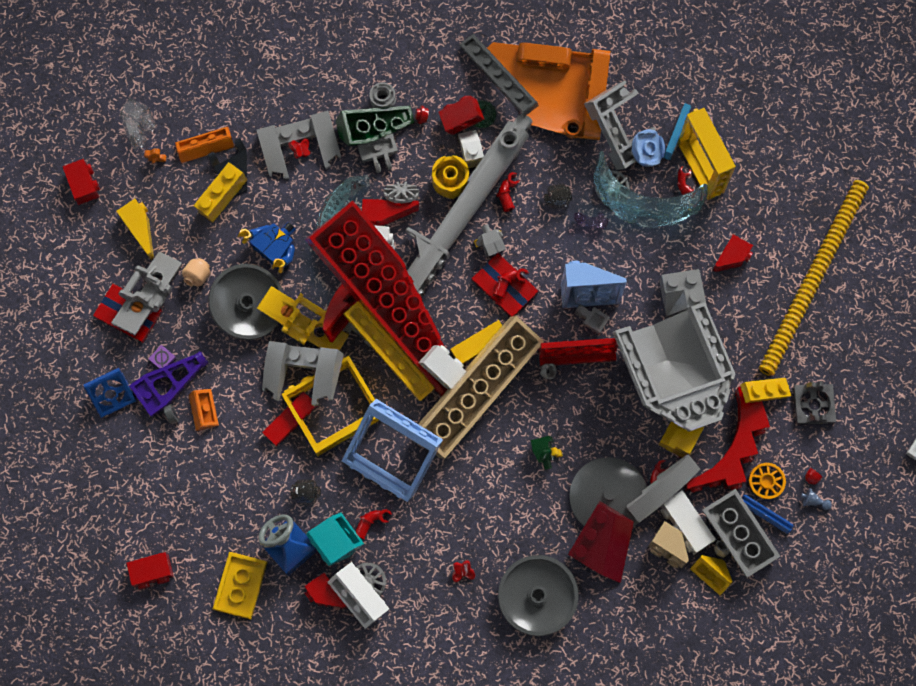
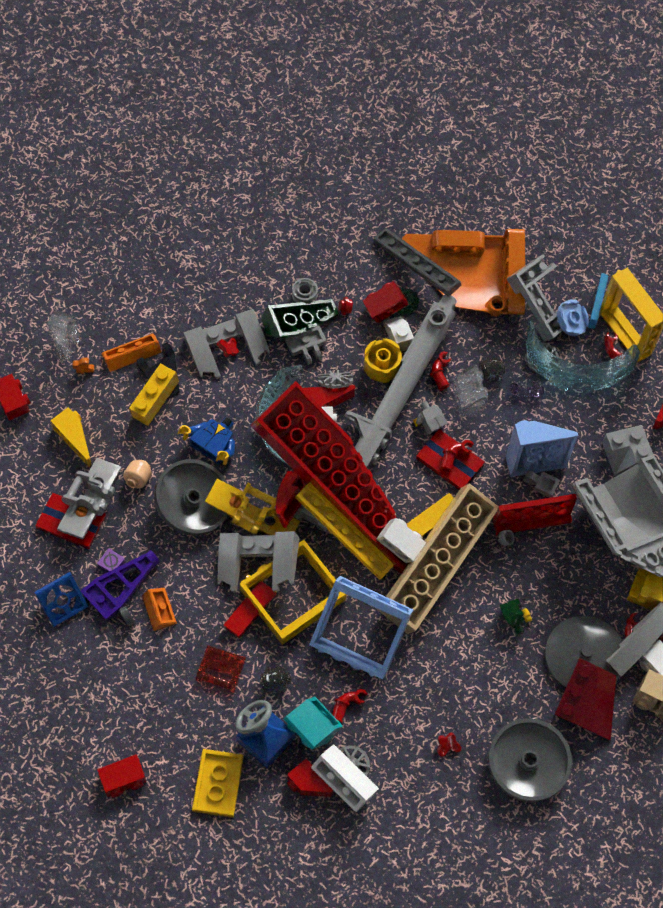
camera: 10 degrees left, 10 degrees down
(257, 469) = (222, 662): none -> clear red plate
(531, 218) = (469, 392): none -> clear slope

